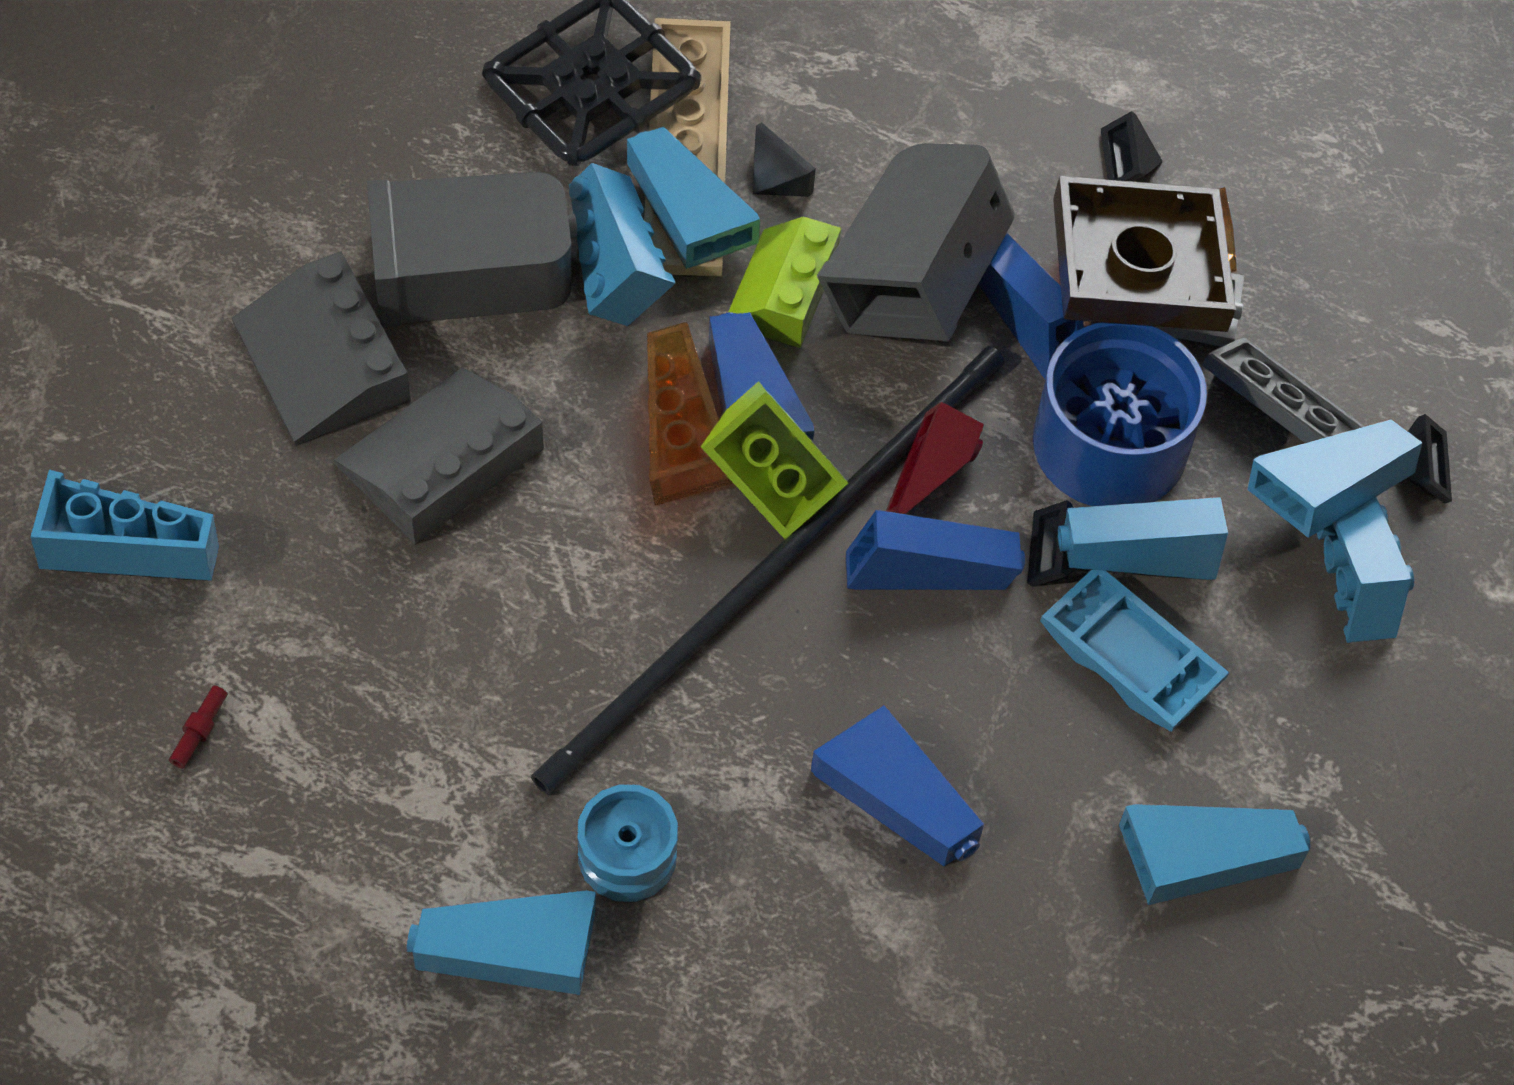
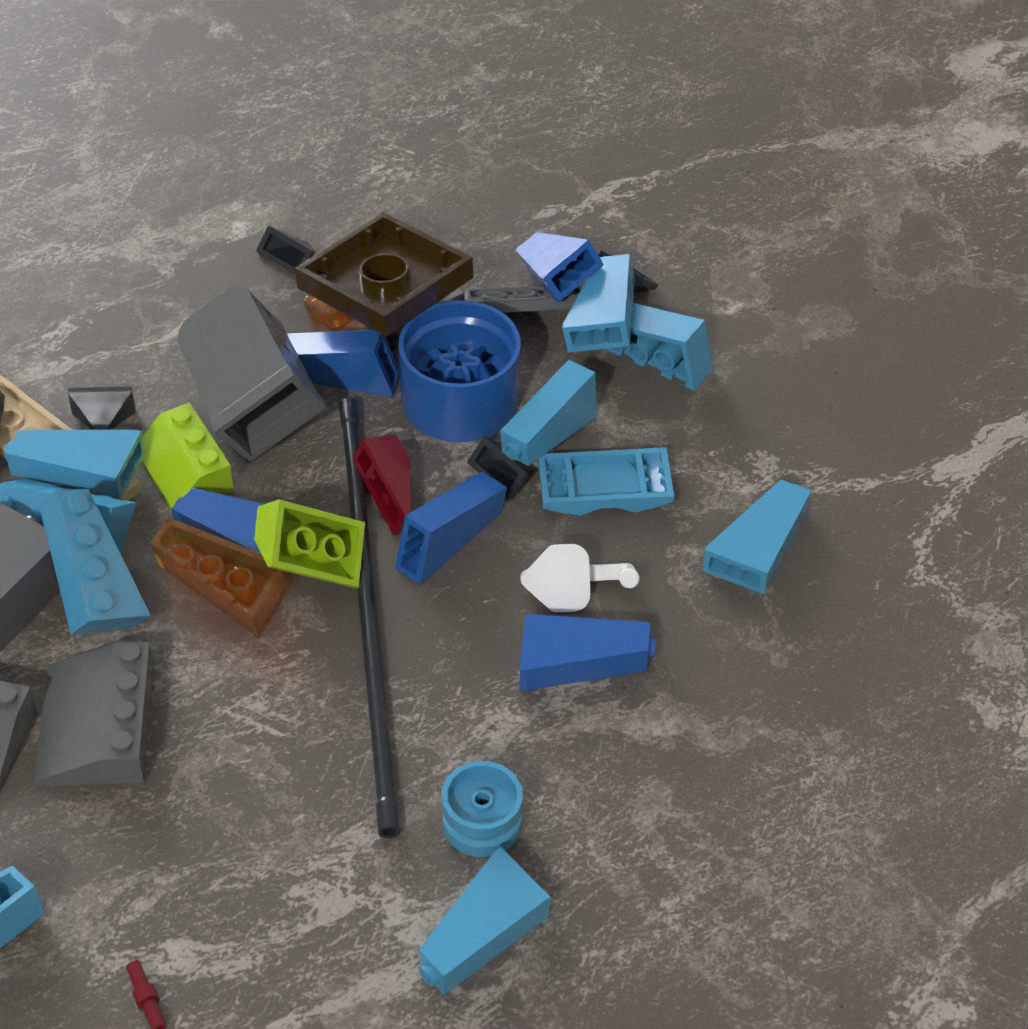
camera: 45 degrees left, 10 degrees down
(564, 310) = (89, 567): none -> dark azure wedge
(967, 702) = (563, 577): none -> white piece
(1340, 389) = (559, 262): none -> blue slope

